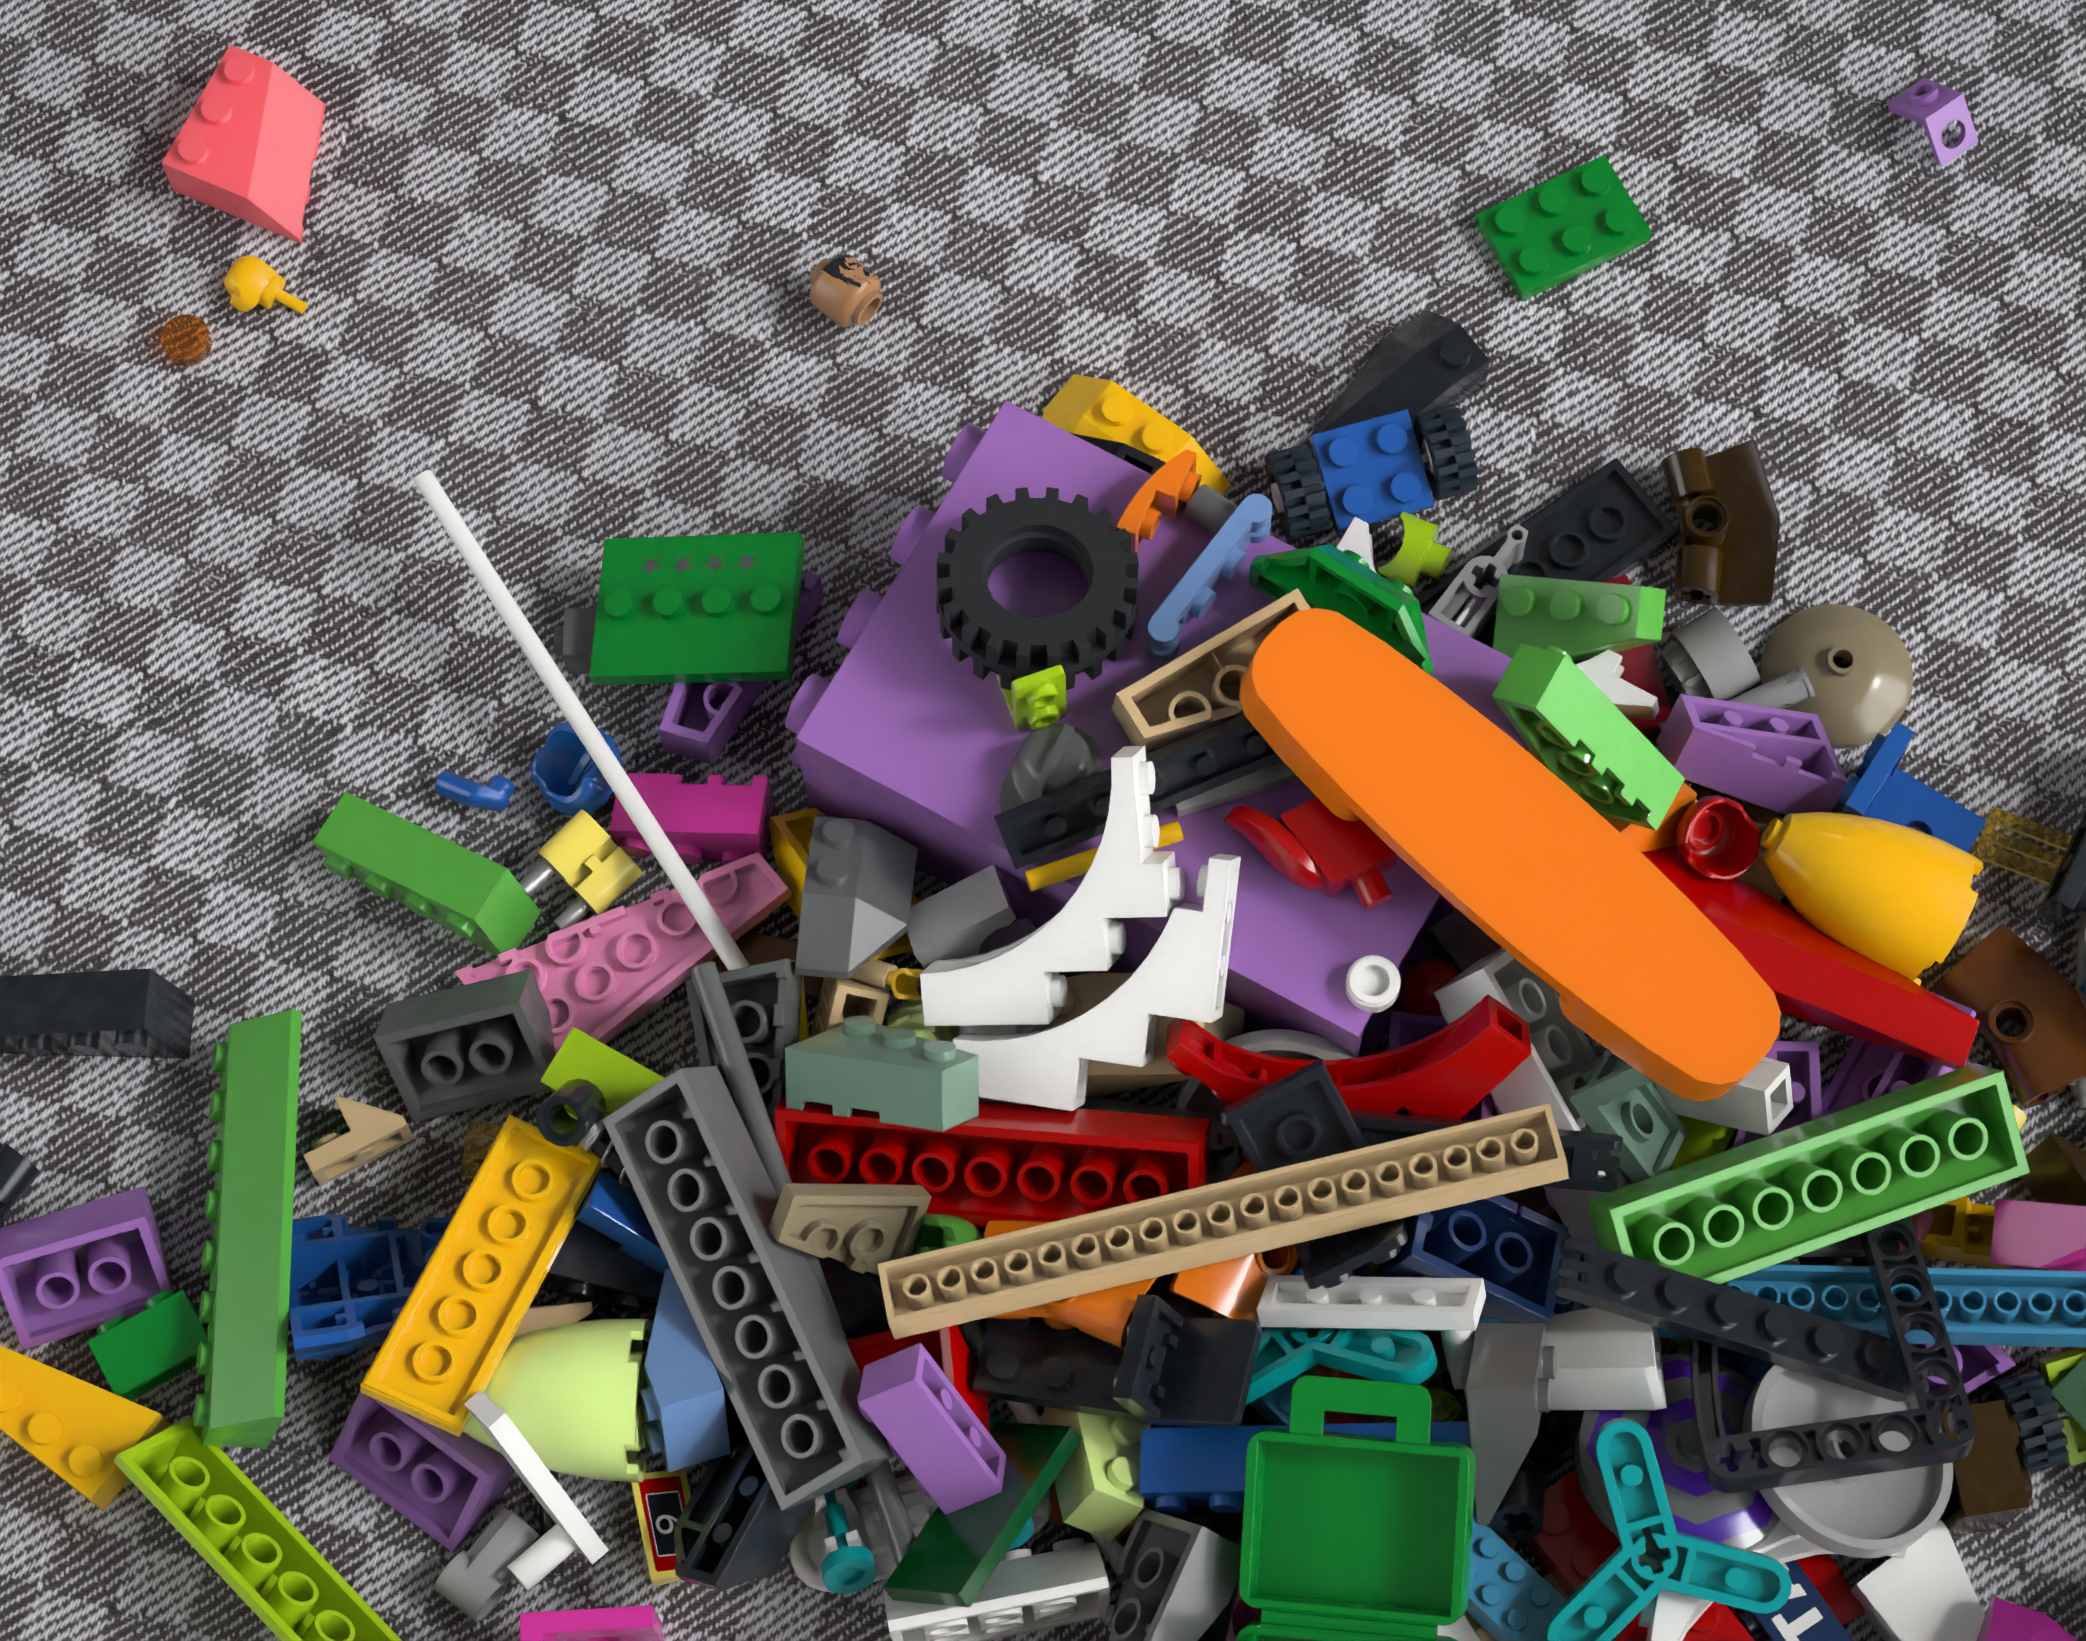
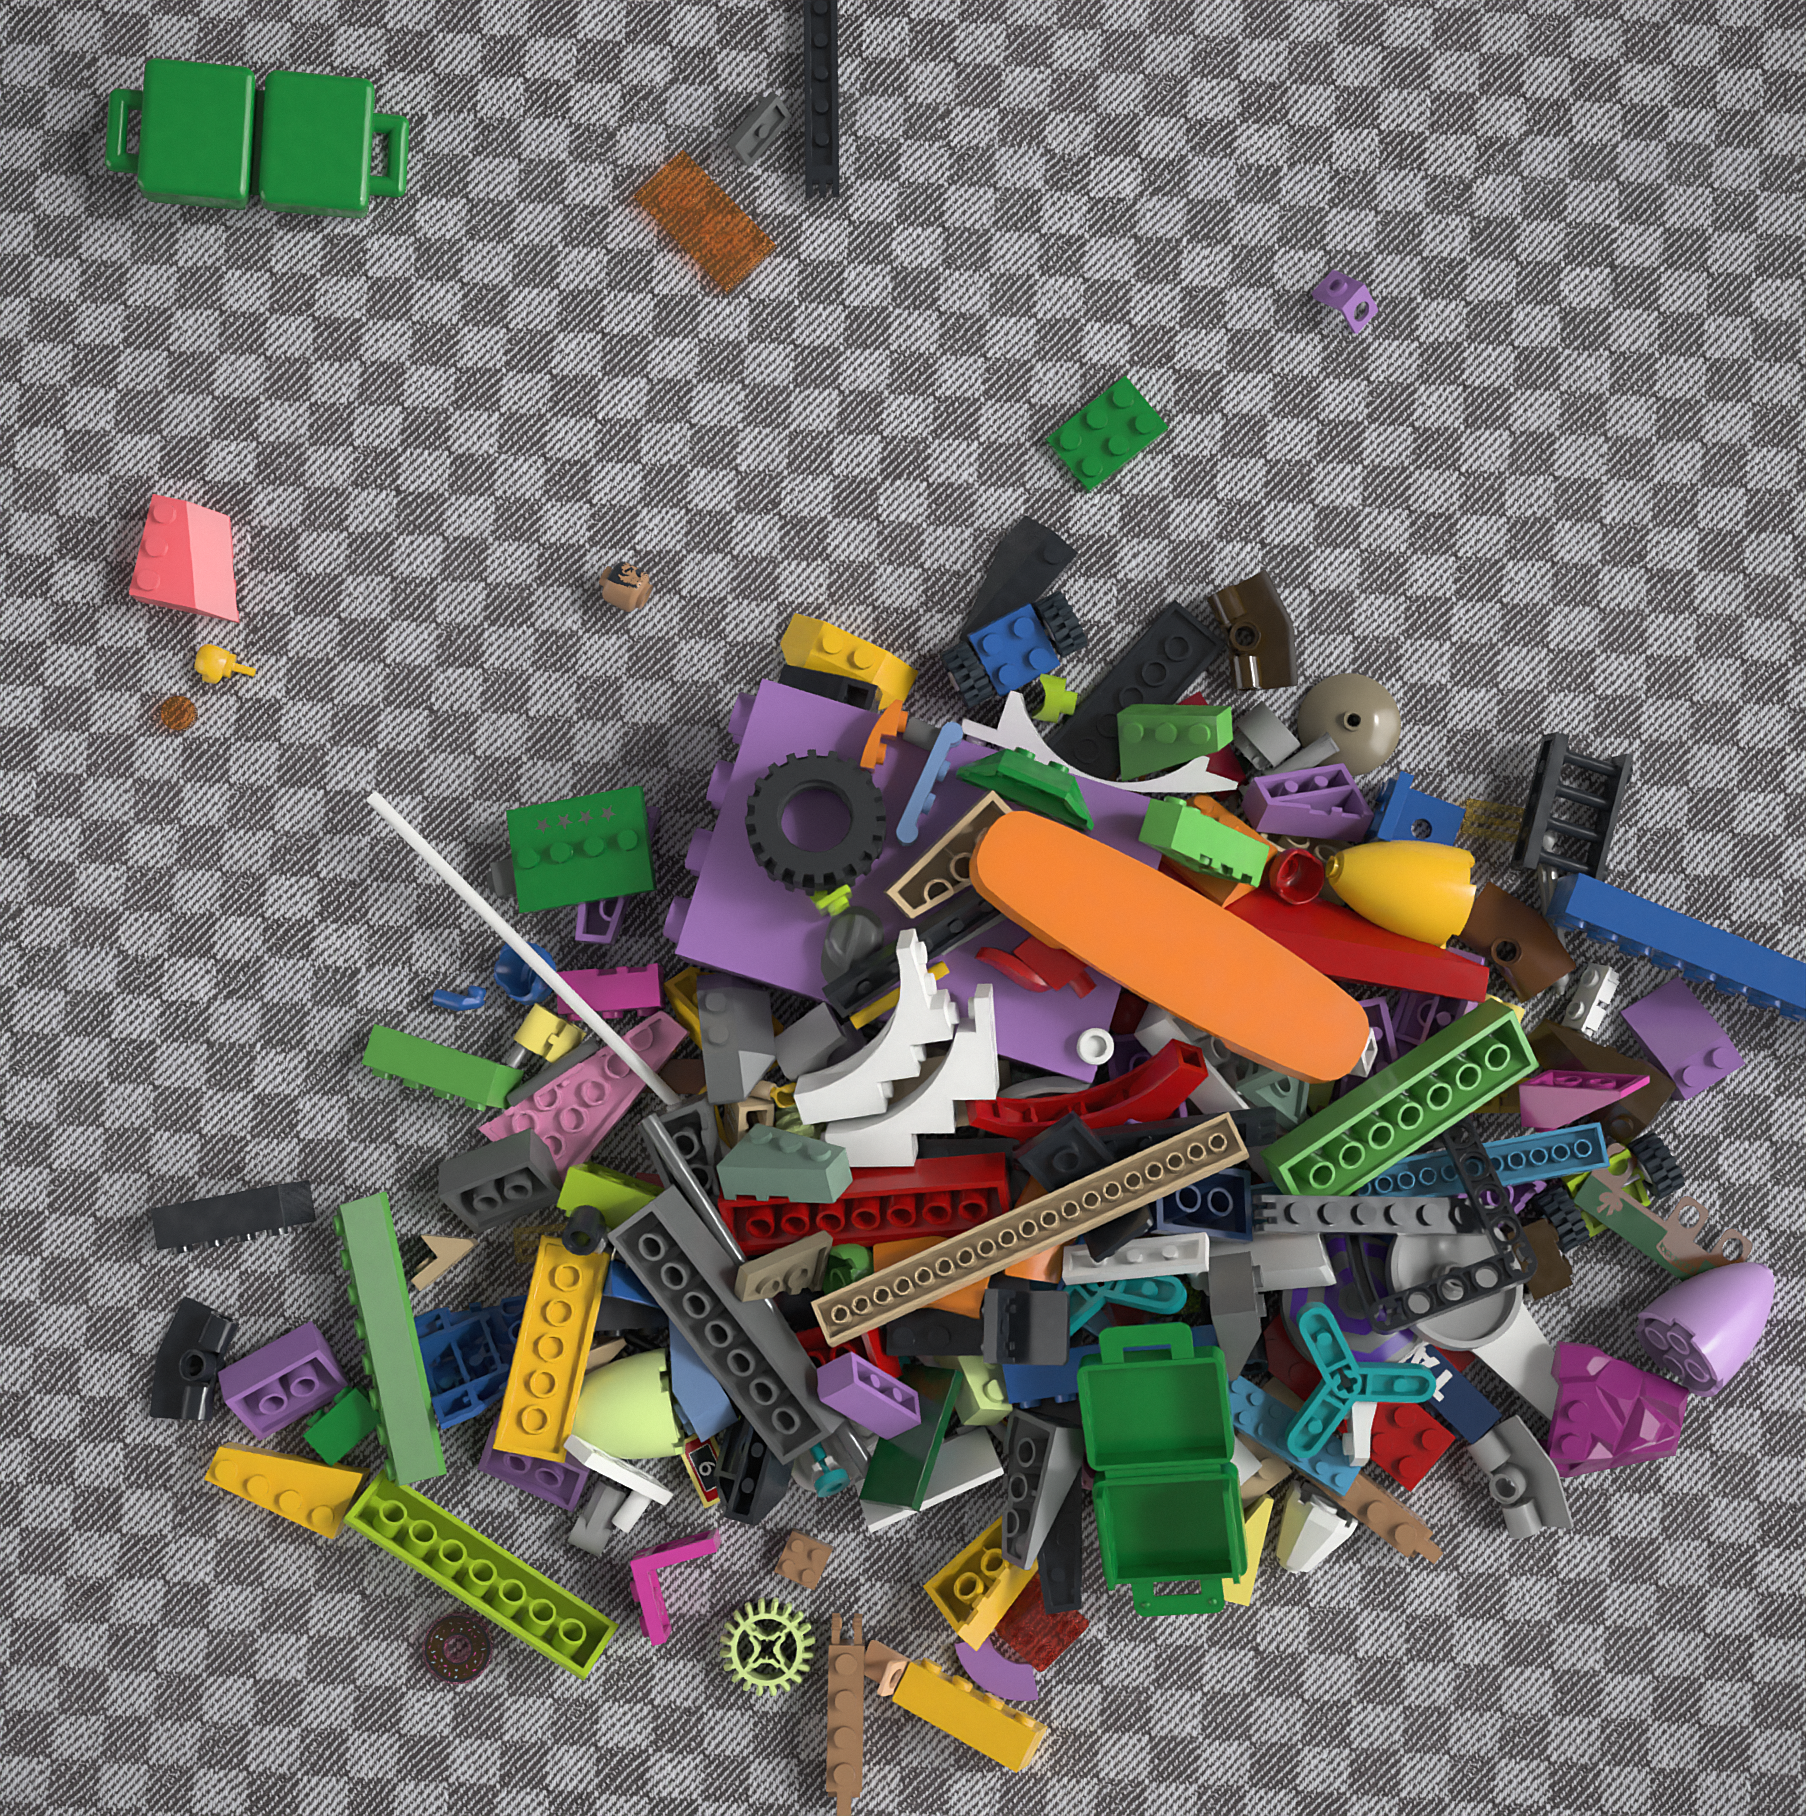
camera: 15 degrees left, 15 degrees up
(582, 909) = (553, 1071): none -> dark grey bar
(1465, 605) = (1093, 726): light grey piece -> none

